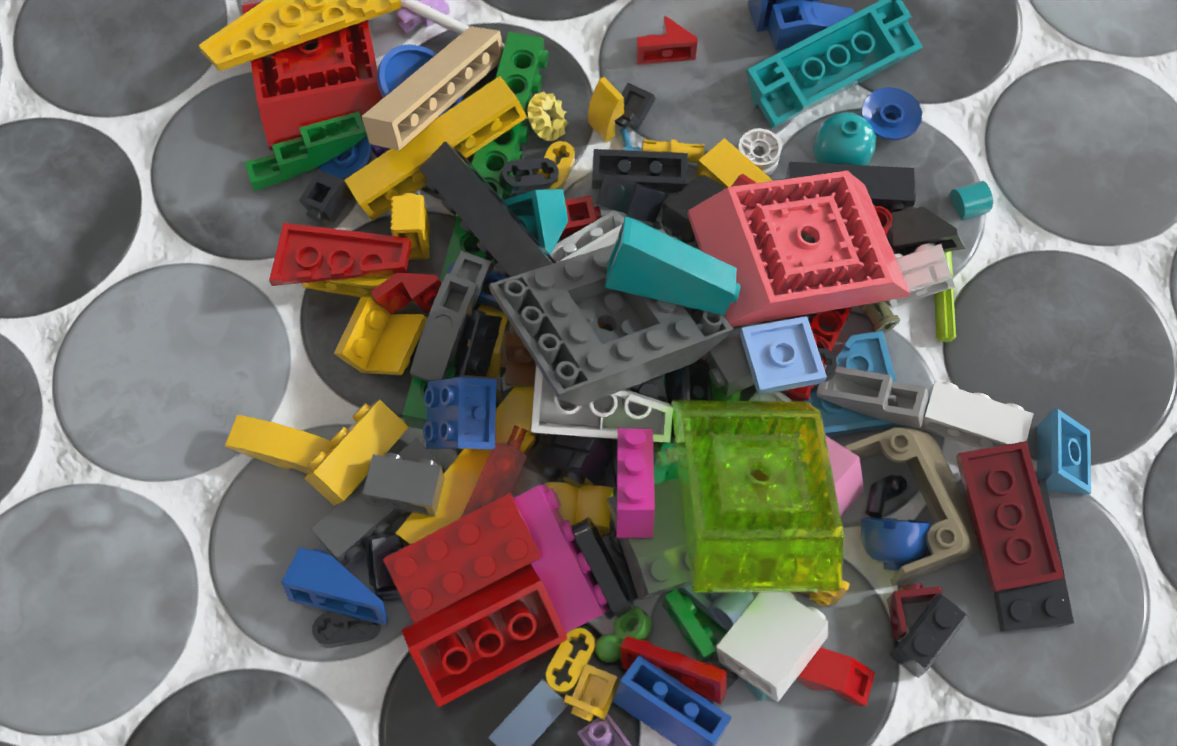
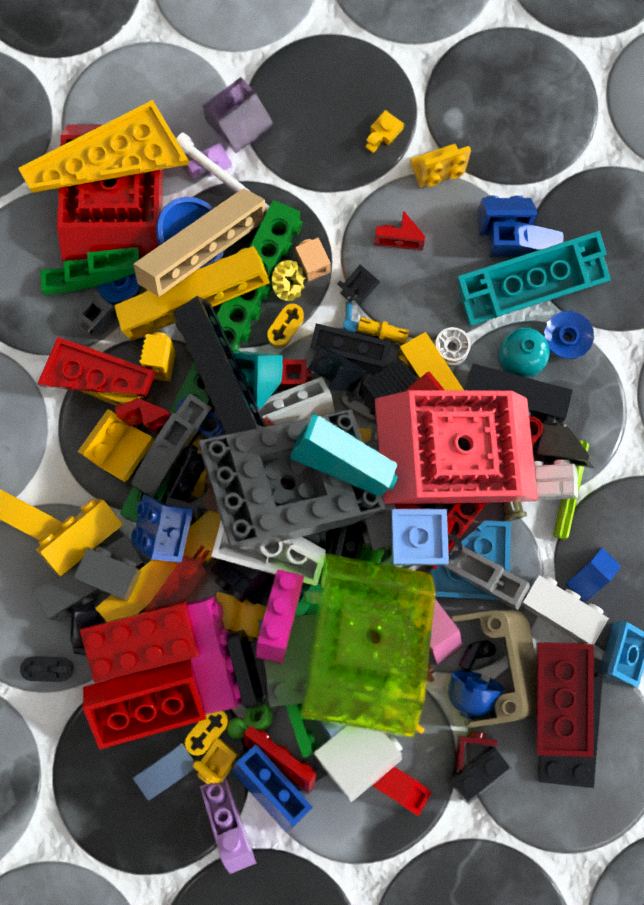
camera: 10 degrees right, 10 degrees up
(326, 584) = (33, 633): blue slope -> none
(530, 179) = (260, 326): black beam -> none
(571, 87) = (312, 259): none -> light nougat brick
(605, 108) = (335, 286): yellow slope -> none
(972, 200) = (614, 423): teal brick -> none
(999, 372) = (593, 575): none -> blue slope

